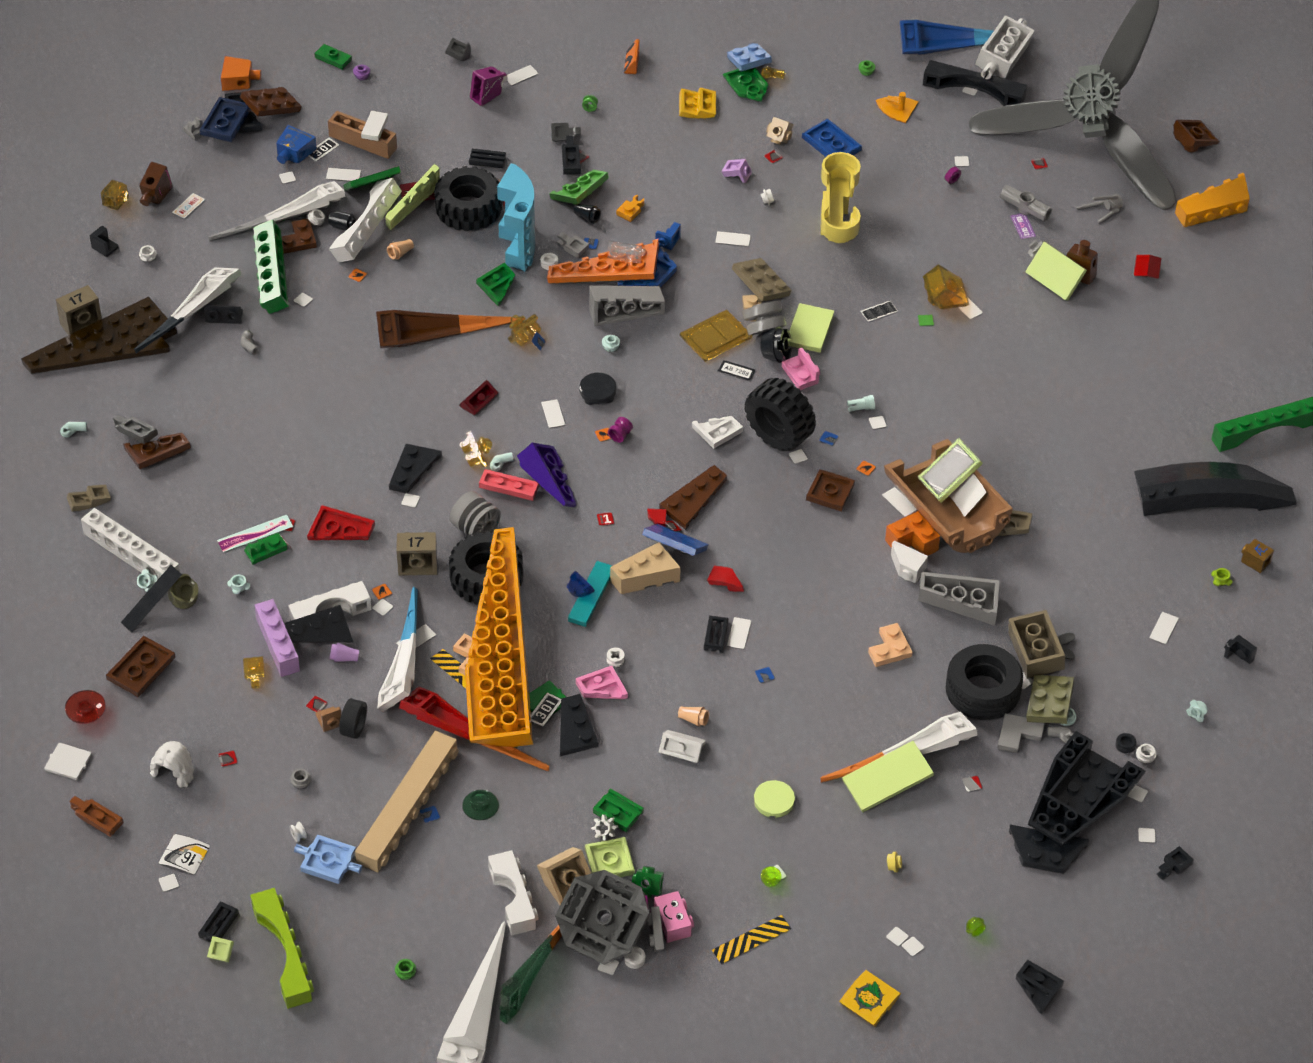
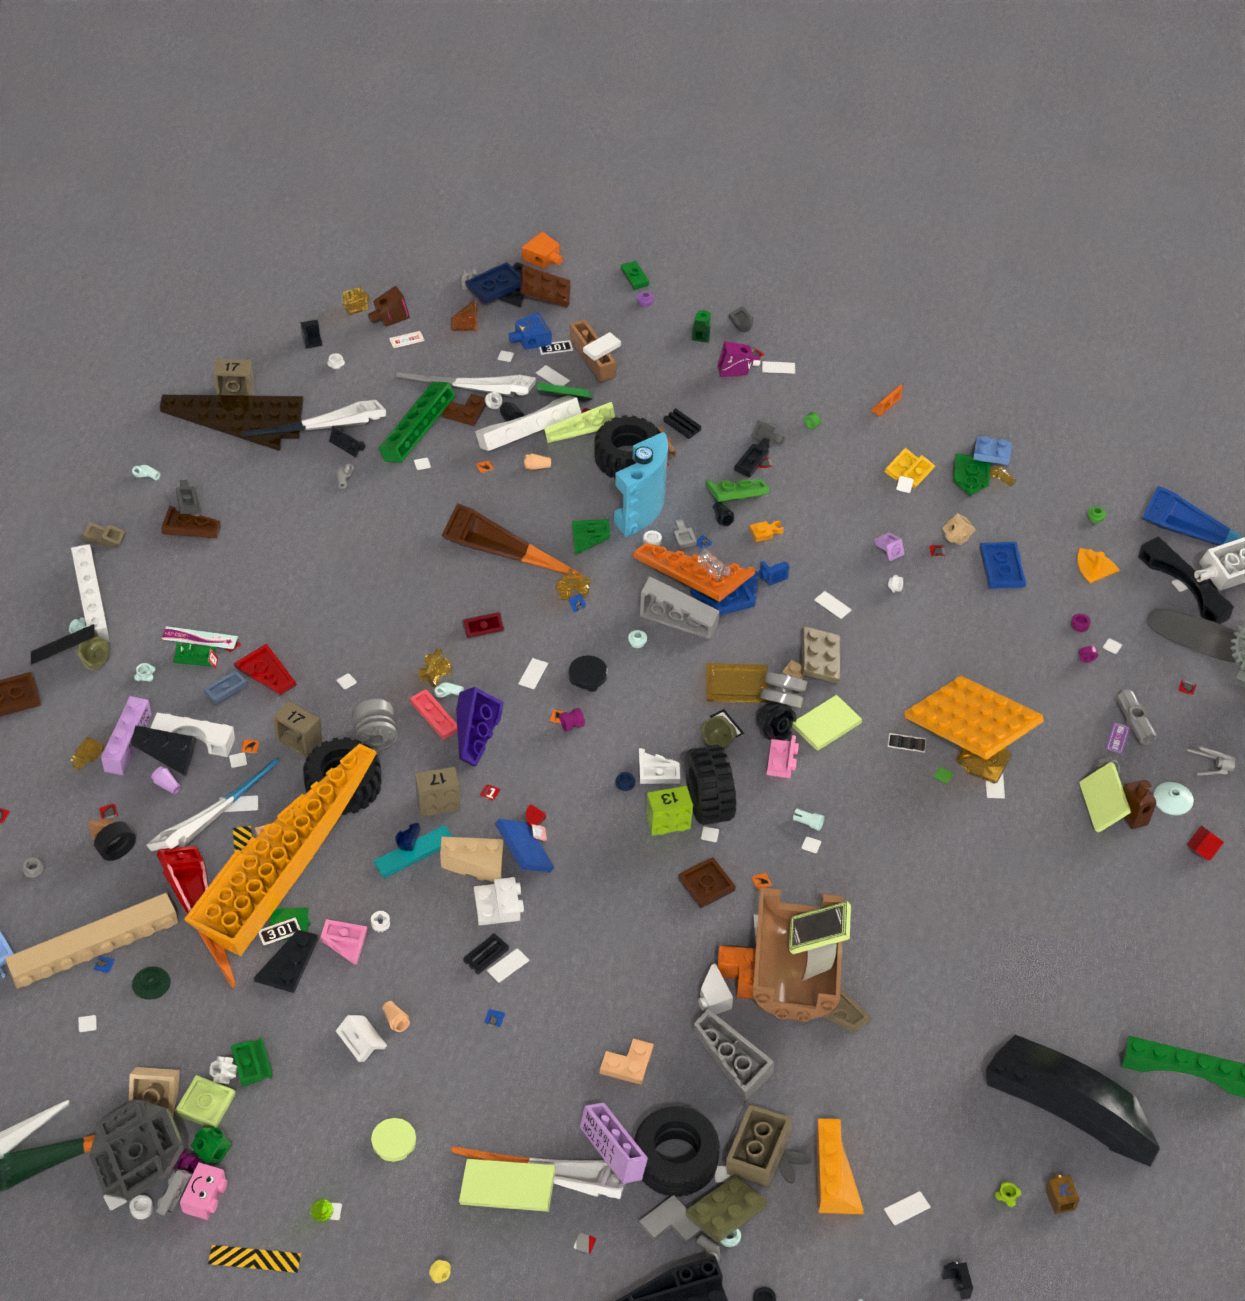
camera: 35 degrees right, 0 degrees up
(227, 161) = (466, 318): none -> clear orange slope
(319, 557) = (225, 687): none -> sand blue plate
(411, 466) = (372, 652): black wing -> none
(431, 74) = (701, 326): none -> dark green leg
(460, 862) = (87, 1023): none -> white sticker
(505, 872) = (84, 1101): white arch -> none
(515, 189) = (643, 455): none -> tile
(573, 537) = (437, 791): none -> dark tan brick
(689, 500) = (580, 816): reddish brown wing -> none
(691, 591) = (498, 902): none -> white plate
(702, 452) = (625, 781): none -> dark blue plate
(705, 117) = (904, 484): none -> white sticker
(725, 577) = (540, 907): red slope -> none
(741, 378) = (718, 732): none -> olive hair
(760, 453) = (669, 810): none -> lime brick
(828, 438) = (753, 833): blue sticker -> none
(840, 176) = (963, 597): light yellow piece -> none
(918, 262) = (974, 717): none -> light orange plate
(925, 155) = (1080, 622): none -> magenta tile
(939, 701) = (613, 1143): none -> lavender brick
(1095, 631) = (835, 1180): none -> light orange wedge
(1103, 246) = (1173, 798): none -> light aqua dish

